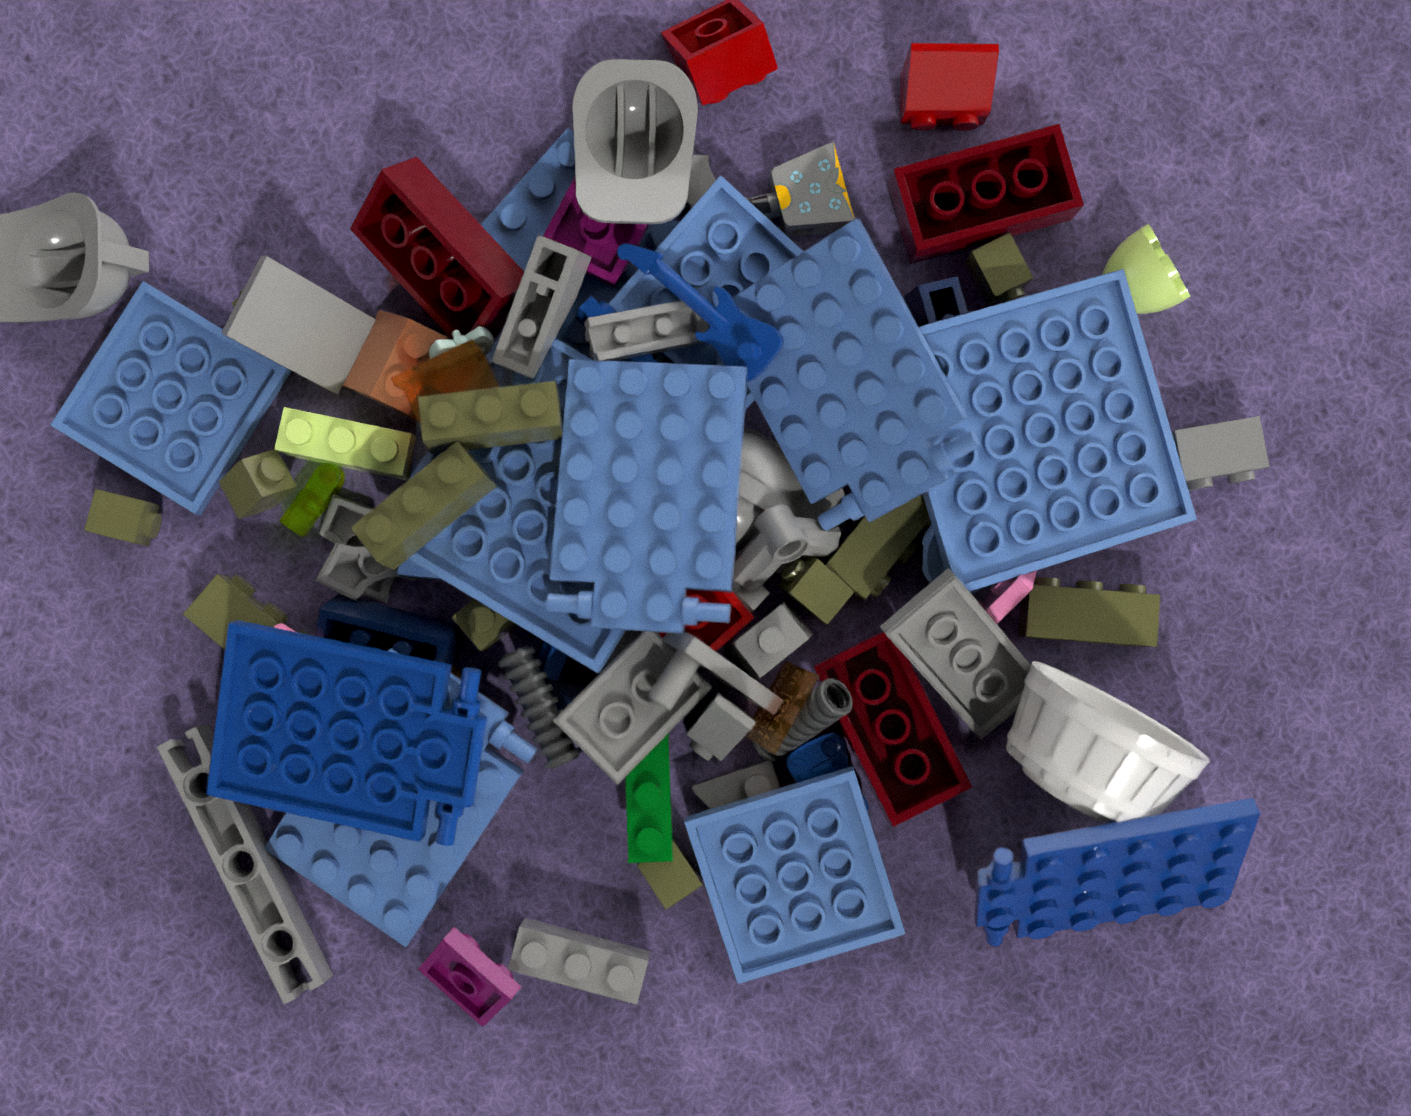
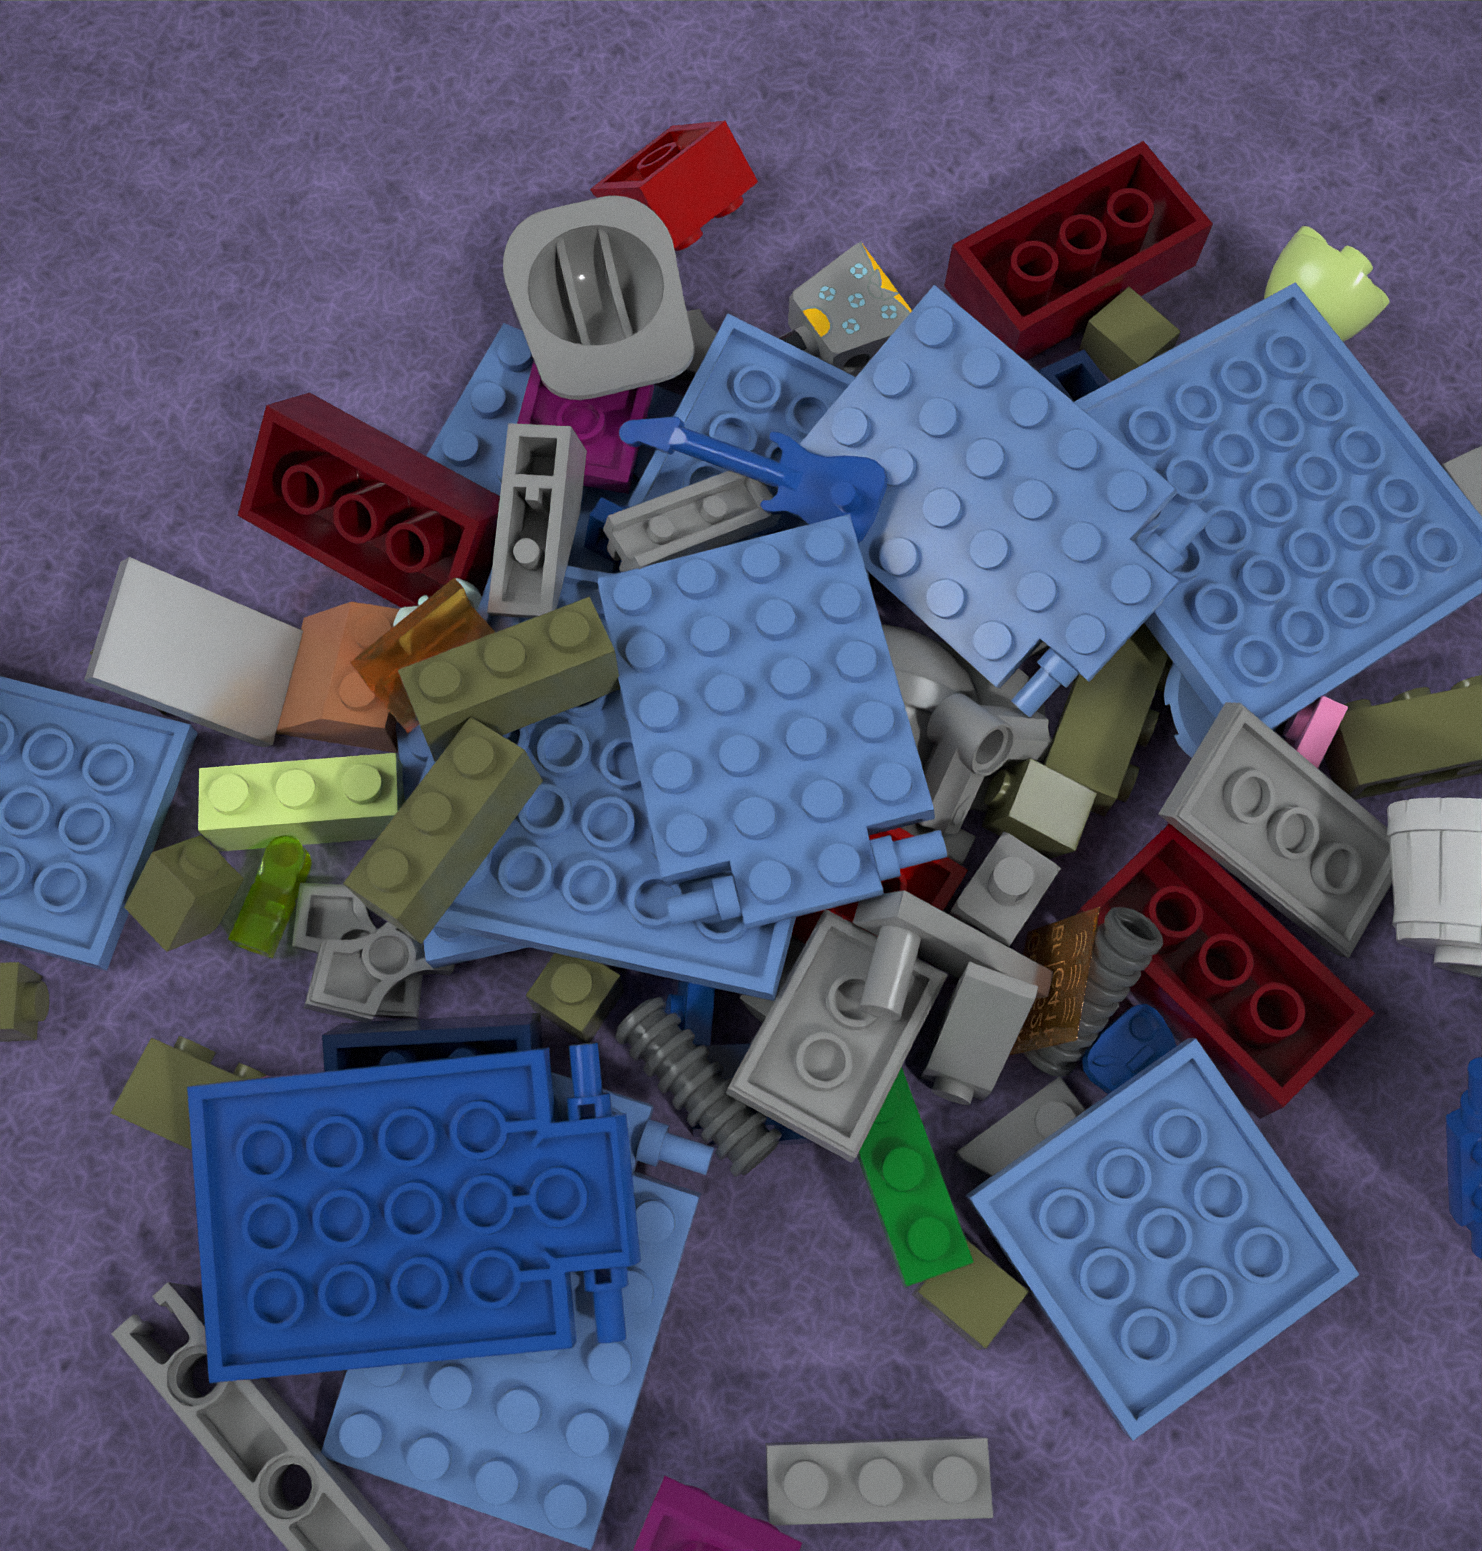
camera: 15 degrees left, 15 degrees down
(948, 85) = (982, 139): red slope -> none

